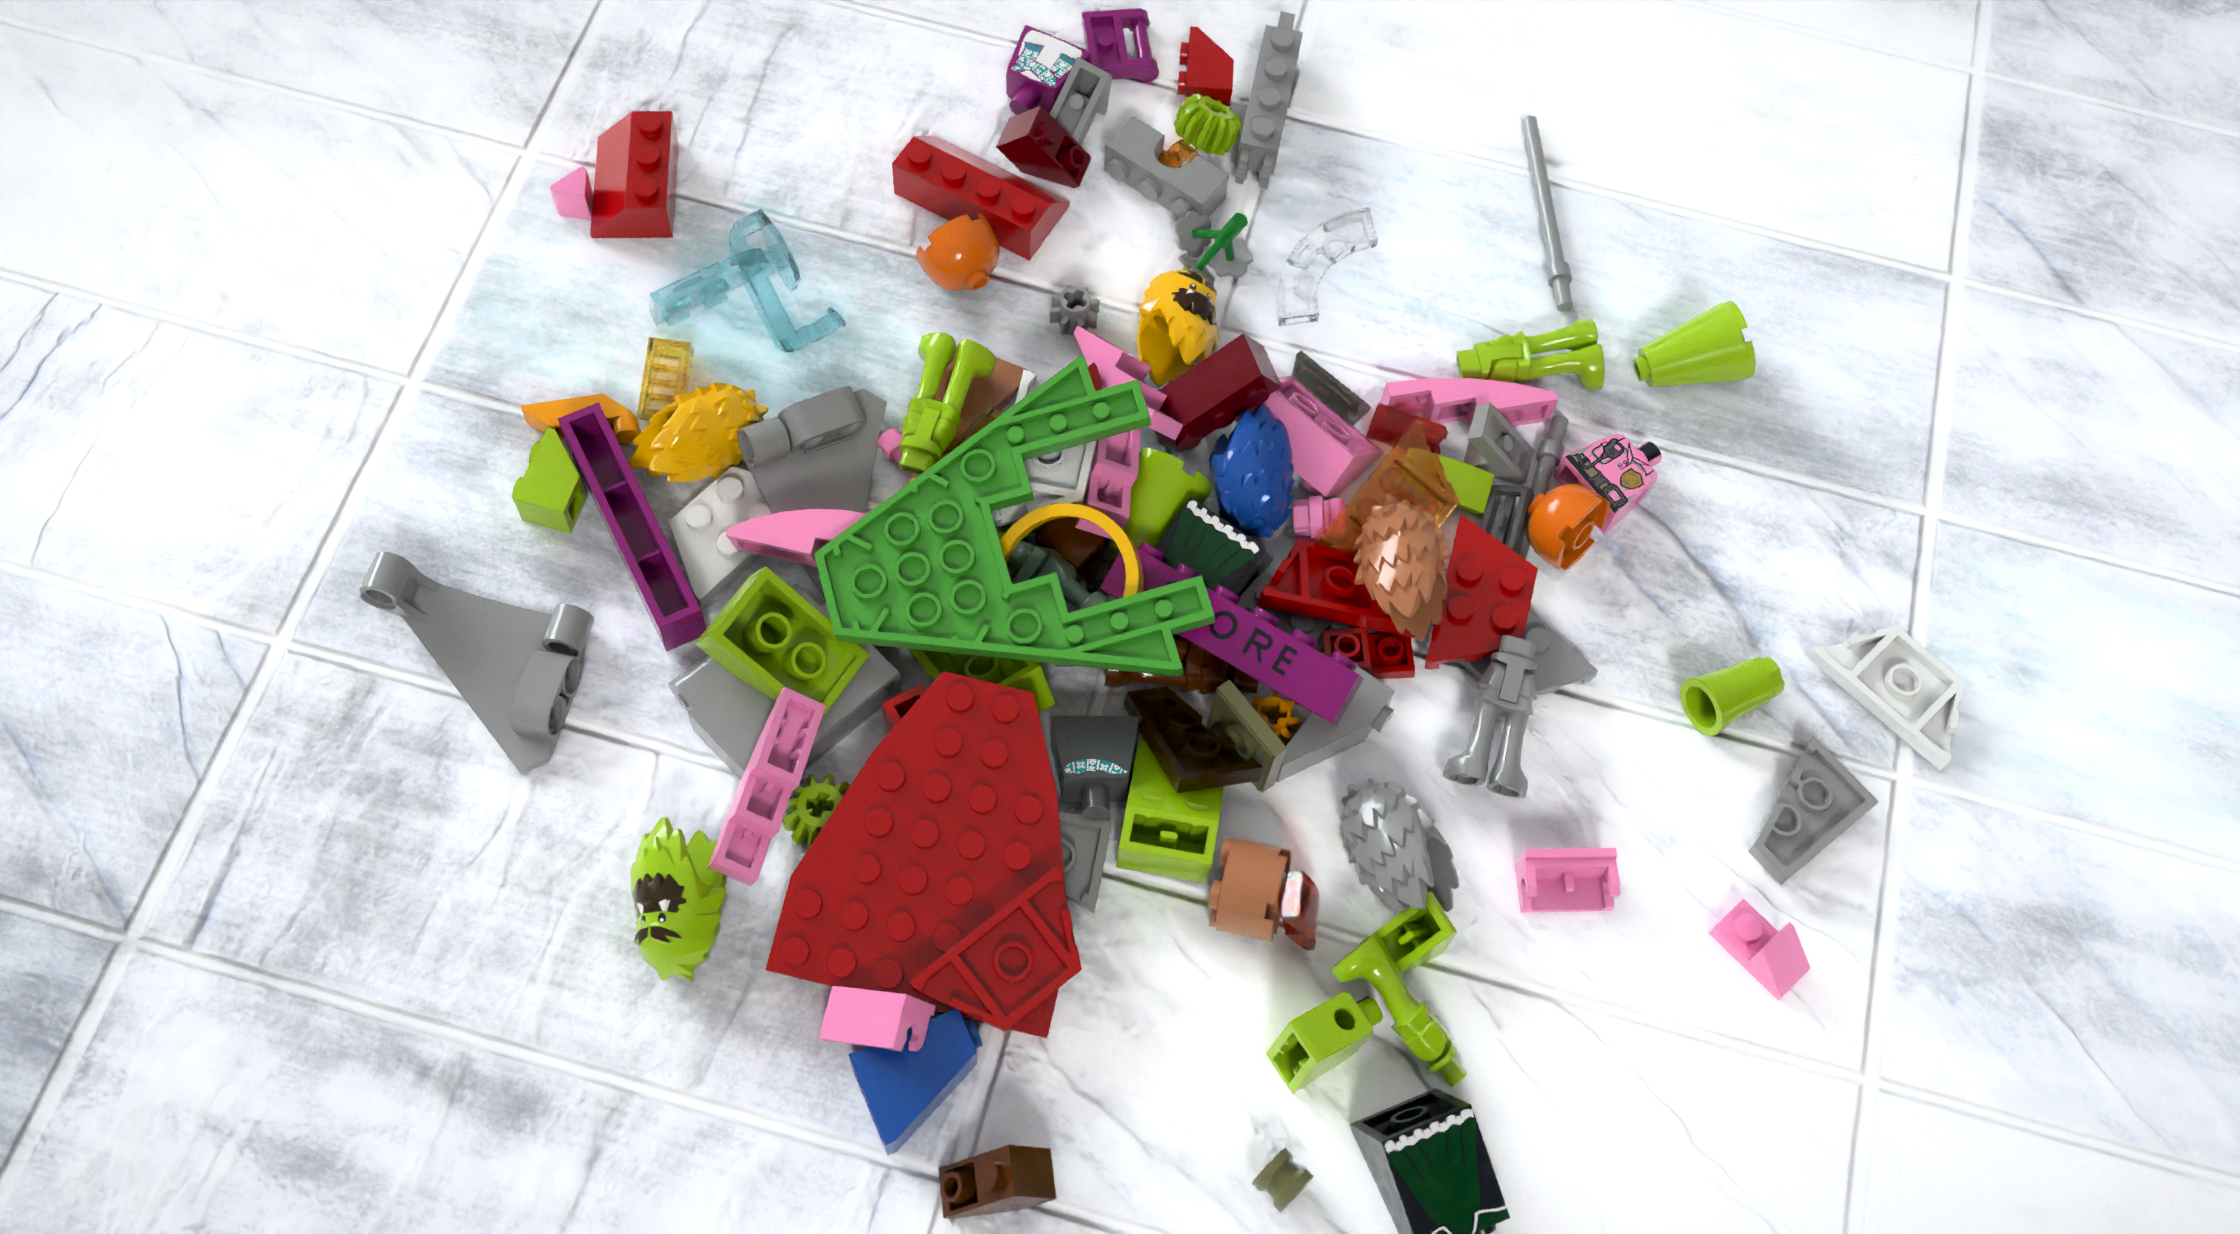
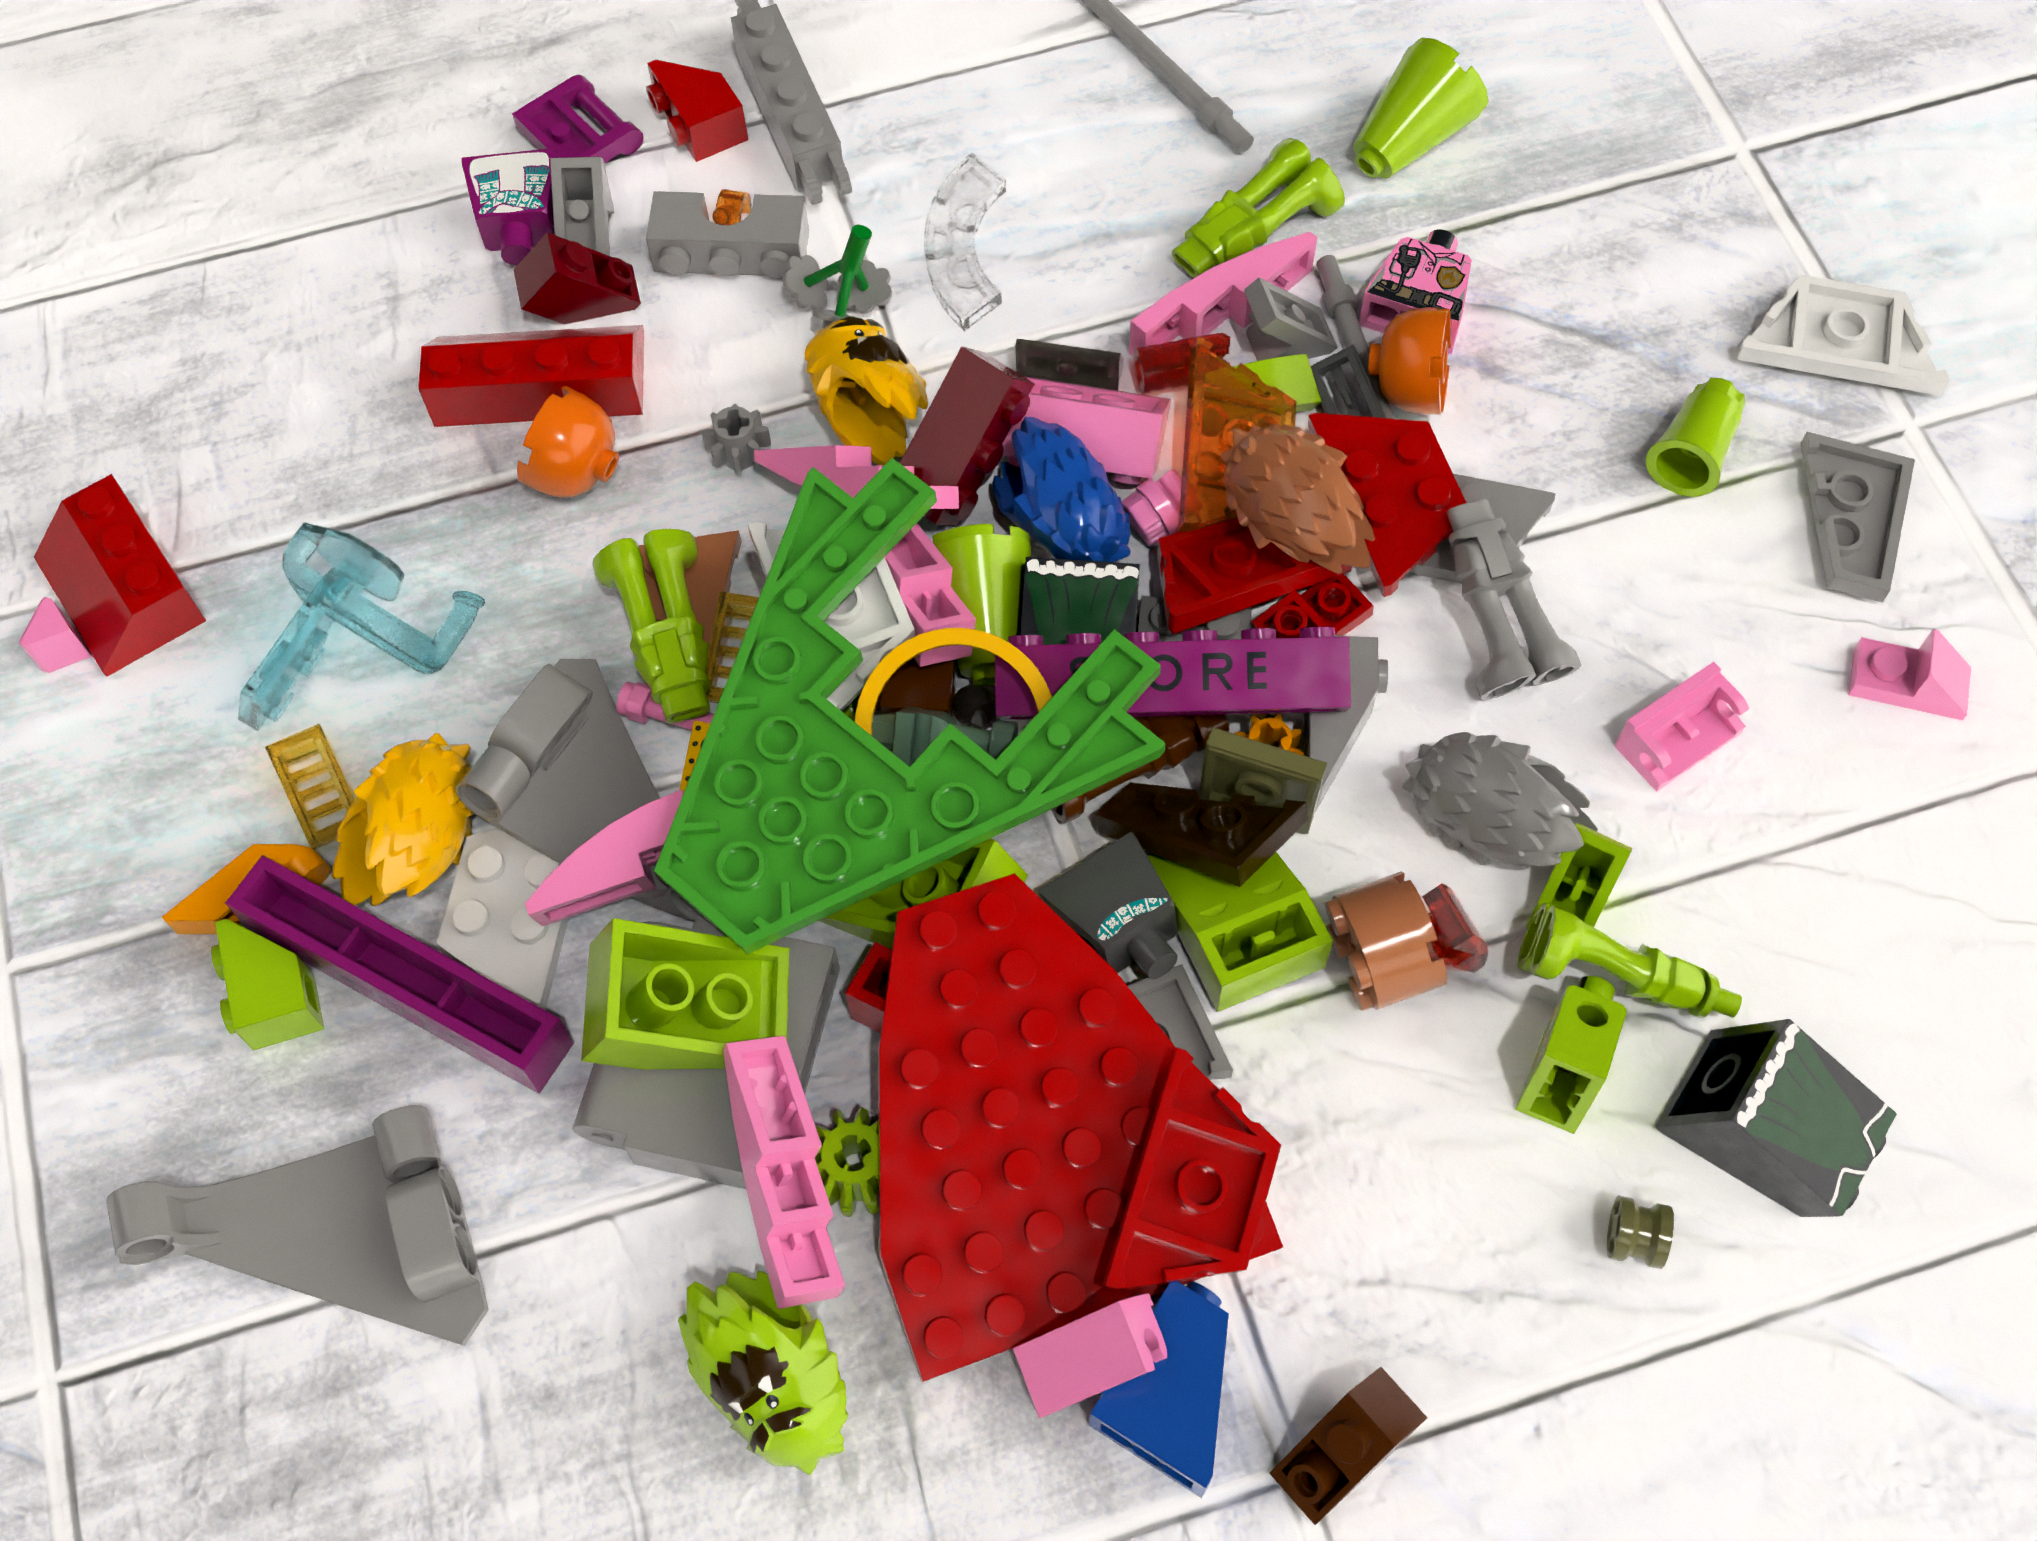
camera: 25 degrees left, 0 degrees up
(1207, 125) = (740, 158): lime gear -> none

